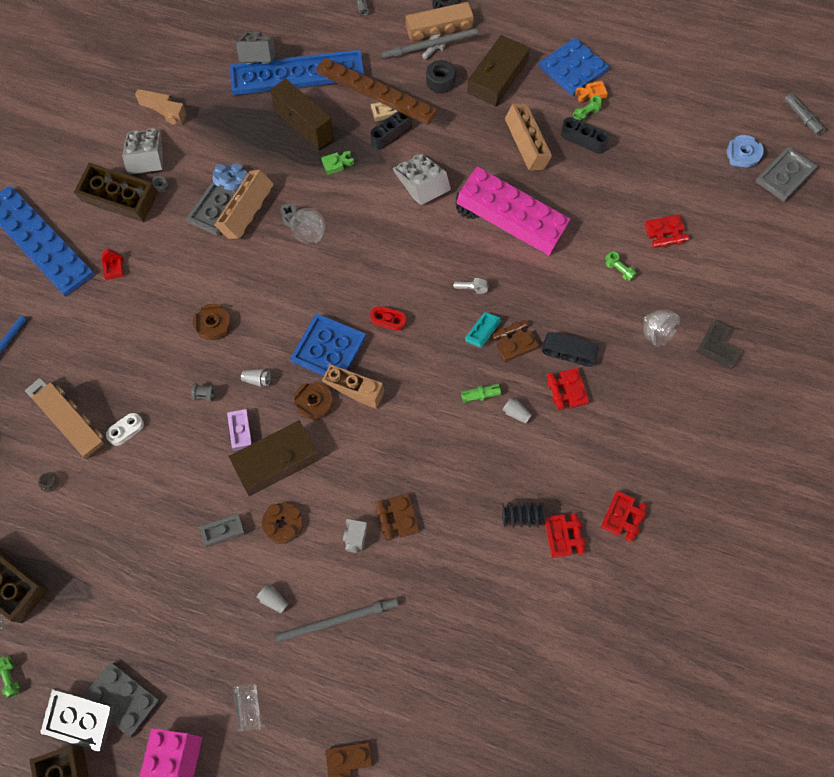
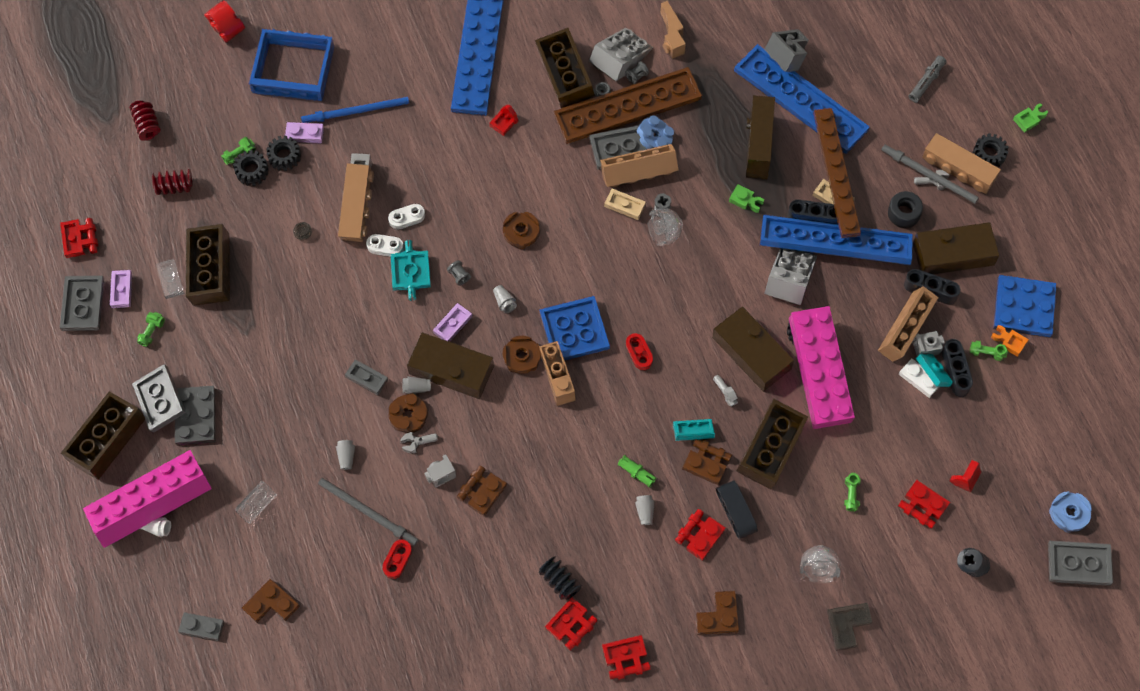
camera: 50 degrees right, 0 degrees up
(120, 394) = (407, 218): none -> white plate
(165, 426) = (410, 270): none -> teal plate
(170, 152) = (637, 73): none -> dark grey bush
(187, 178) = (627, 105): none -> reddish brown plate
(263, 238) = (625, 204): none -> tan plate
(264, 498) = (415, 385): none -> light grey cone
(312, 534) = (416, 441): none -> light grey bar
(399, 628) = (397, 560): none -> red plate
(420, 135) = (826, 239): none -> blue plate
(456, 243) = (752, 348): none -> dark brown brick
(501, 106) = (942, 285): none -> black beam
(541, 286) = (772, 444): none -> dark brown brick
(554, 136) = (922, 345): none -> light grey brick
(571, 162) = (918, 378): none -> white plate
(575, 148) = (934, 370): none -> teal plate
(646, 425) = (721, 621): none -> reddish brown plate
(672, 193) = (969, 478): none -> red tile
(745, 230) = (977, 569): none -> black piece

